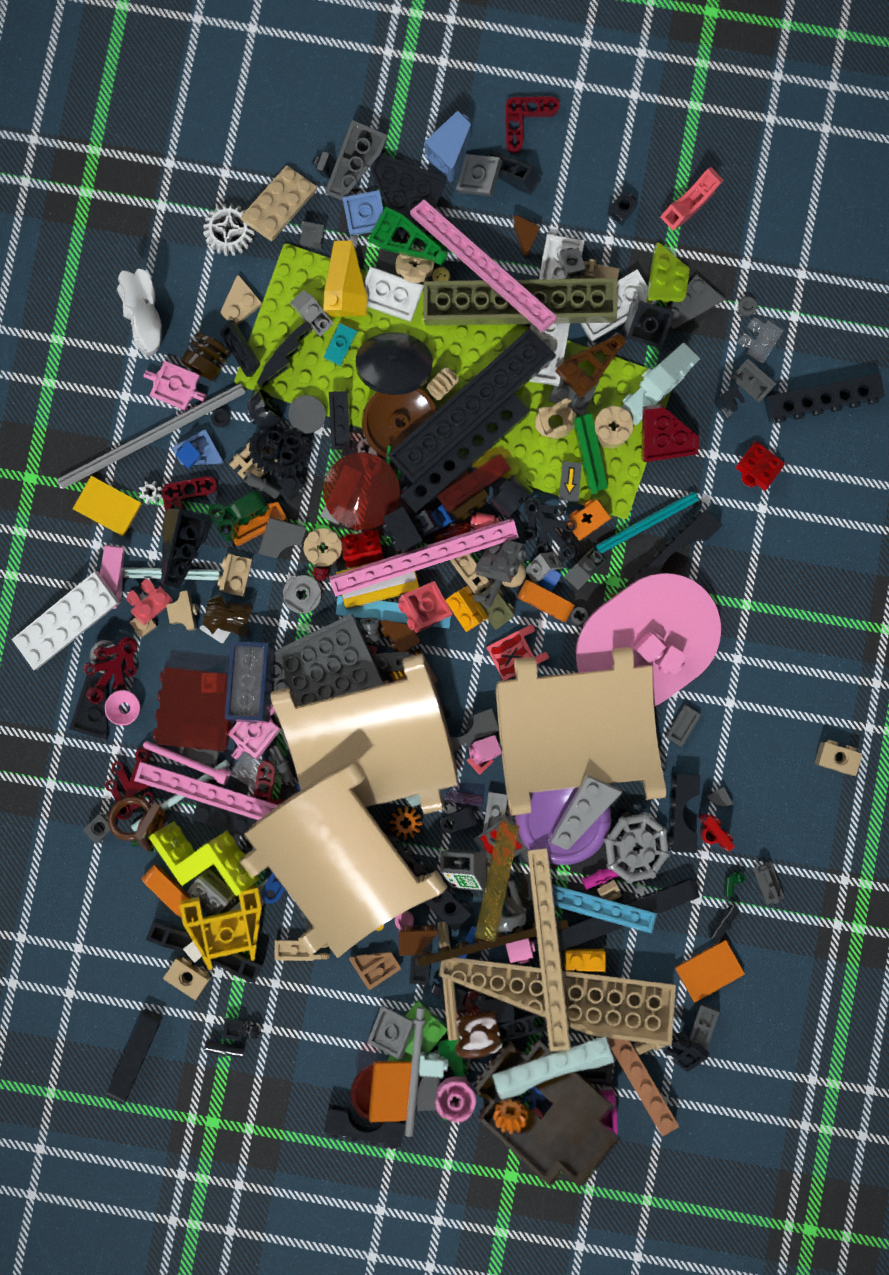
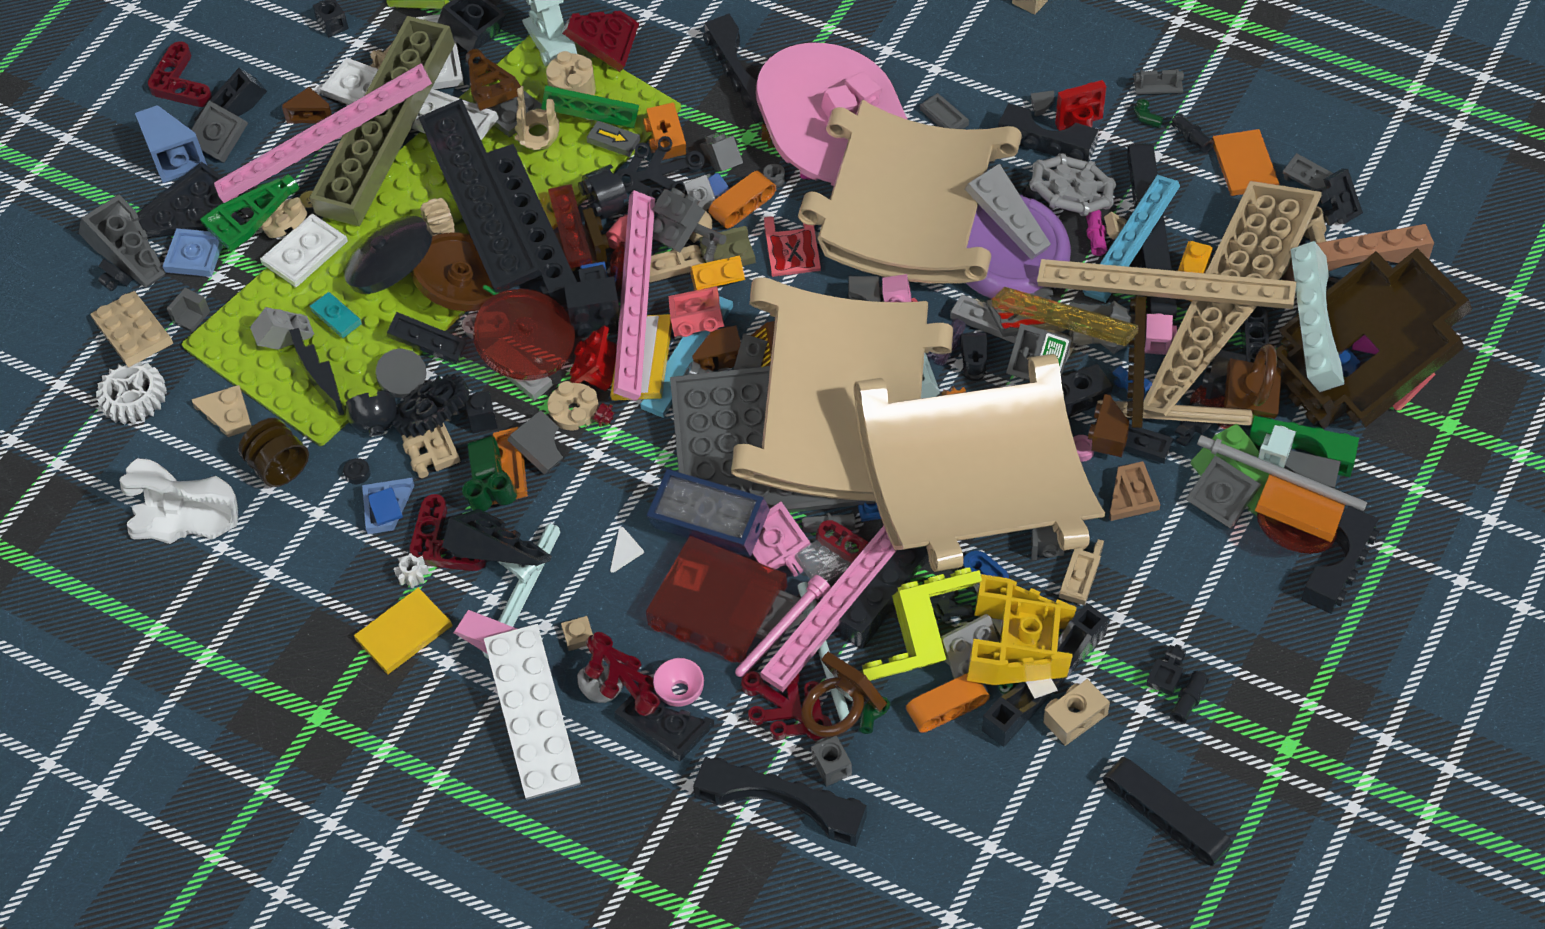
camera: 65 degrees left, 30 degrees down
(61, 763) = (726, 783): none -> black arch
(150, 436) = (339, 558): light grey axle -> none
(151, 605) = (558, 612): coral plate -> none
(174, 385) = (289, 506): bright pink plate -> none
(183, 611) = (583, 577): tan brick -> none
(226, 616) = (602, 528): dark brown piece -> none
(235, 575) = (563, 509): tan bracket -> none
(240, 348) = (291, 413): black plate -> none
(261, 485) = (460, 442): dark grey axle -> none
(299, 584) = (623, 454): light grey plate -> none
(344, 285) = (265, 285): yellow wedge -> none
(449, 1108) = (1328, 429): bright pink brick -> none
(510, 1116) = (1366, 375): orange gear -> none
(572, 271) = (364, 65): dark grey brick -> none
(647, 522) = (694, 86): teal axle -> none

